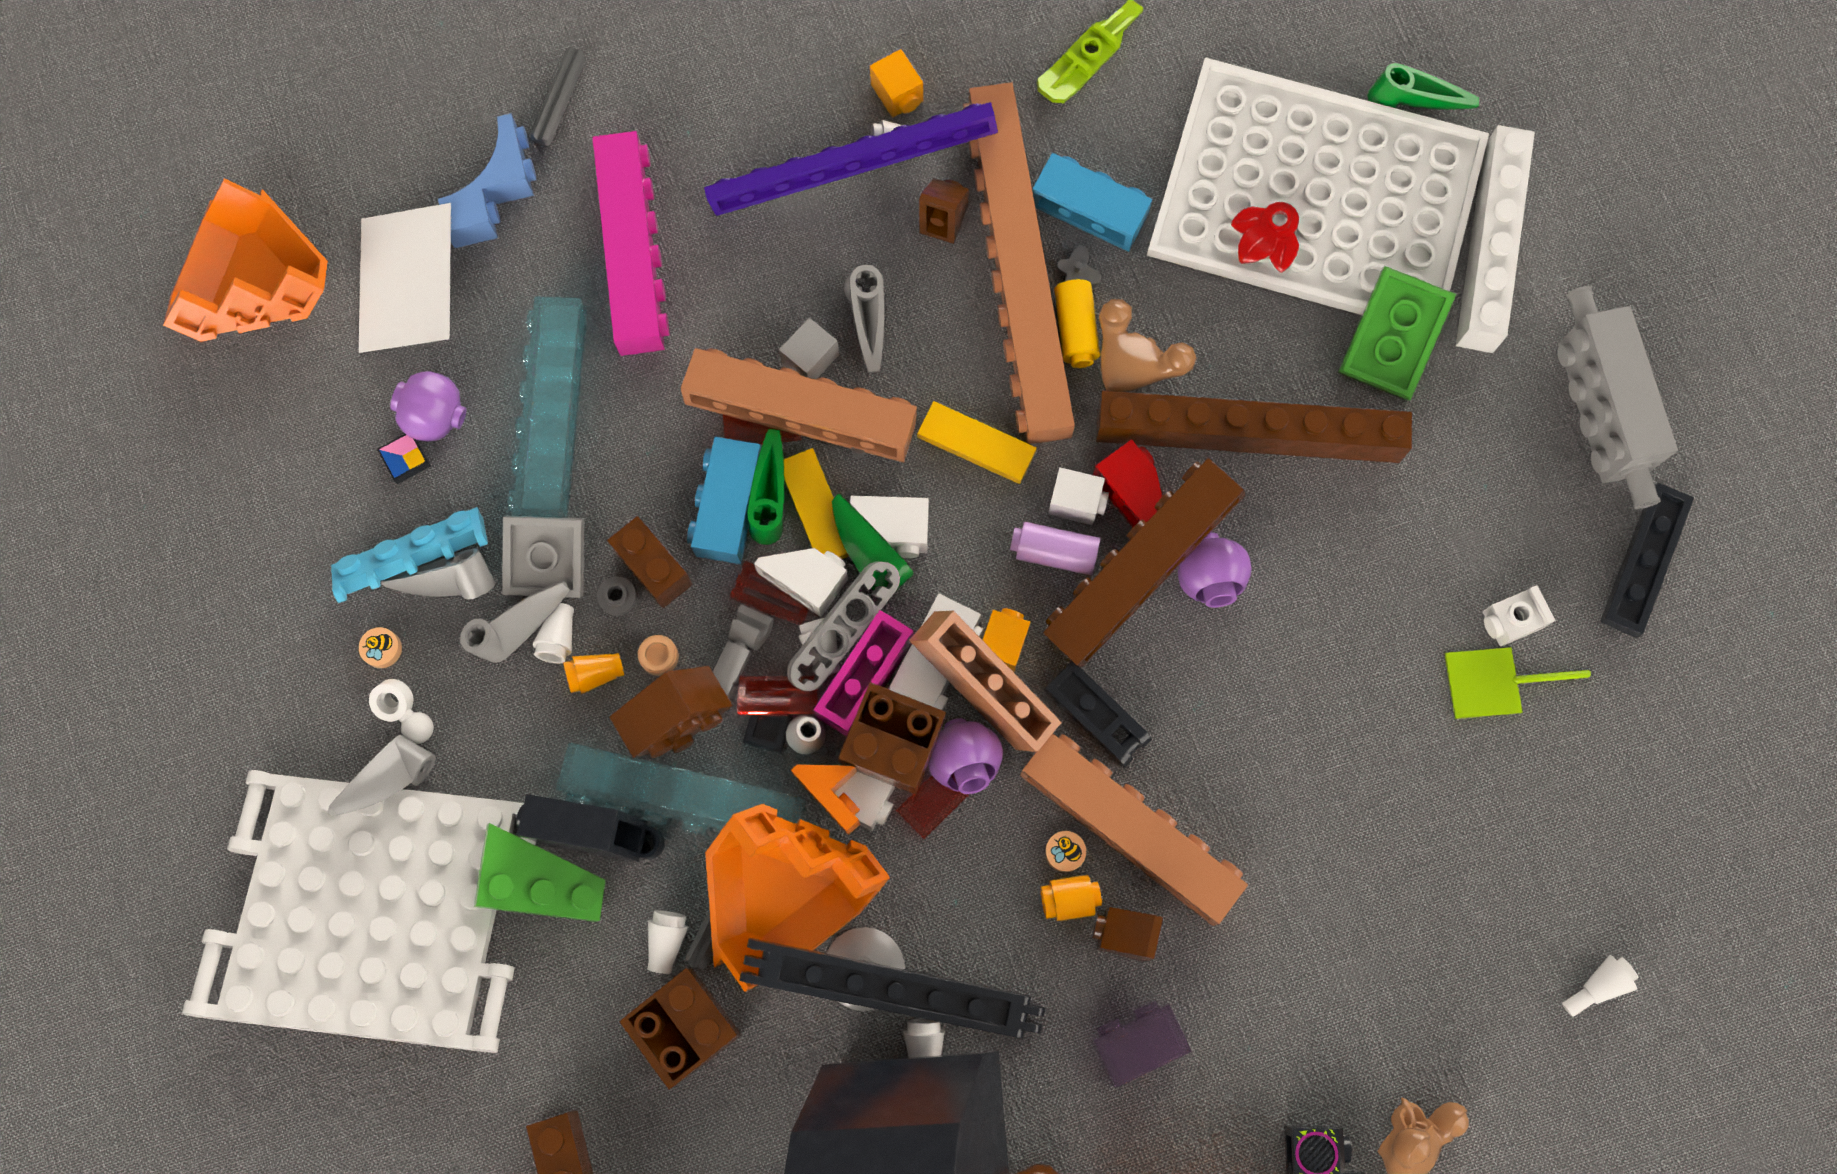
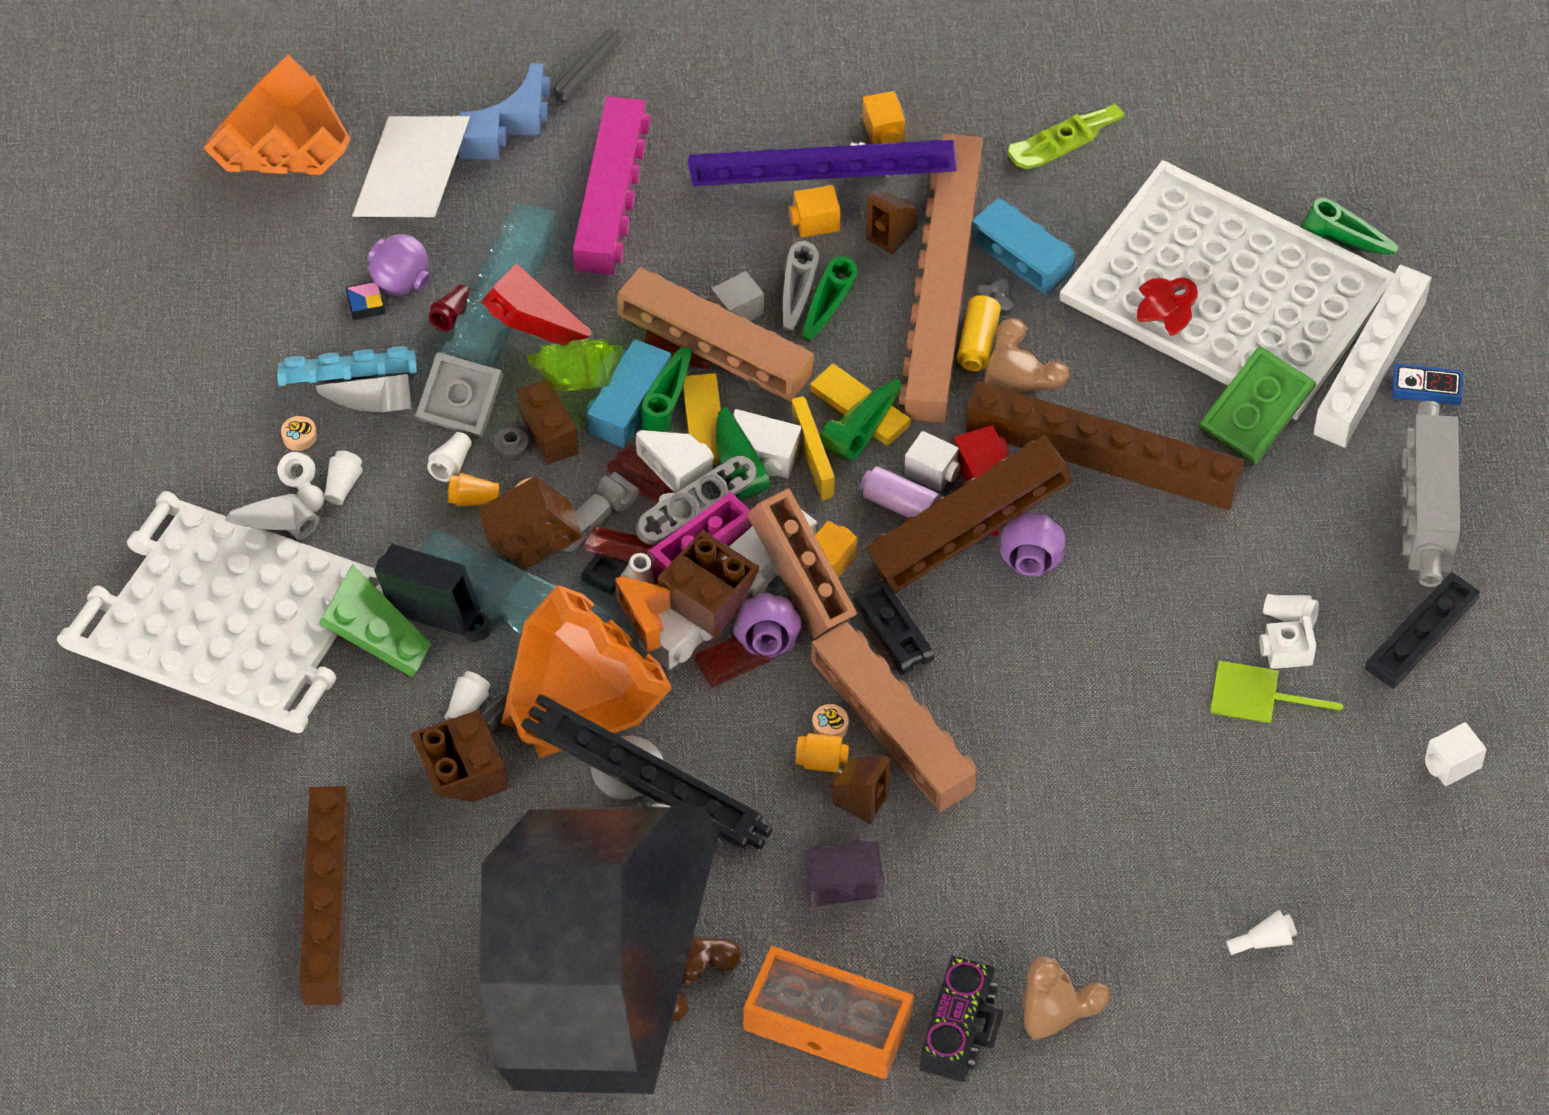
camera: 15 degrees right, 20 degrees down
(443, 693) = (342, 474): none -> white cone
(500, 445) = (448, 308): none -> dark red cone
(510, 629) = (411, 440): light grey piece -> none
(582, 430) = (531, 309): none -> slope
(663, 490) = (578, 365): none -> clear neon green slope
(859, 217) = (815, 211): none -> light orange brick
(907, 322) = (829, 294): none -> green piece
(945, 514) = (813, 448): none -> yellow tile
(984, 473) = (856, 428): none -> green piece
(1508, 573) = (1291, 607): none -> white cone
(1557, 255) = (1427, 384): none -> tile
(1730, 705) = (1455, 754): none -> white brick

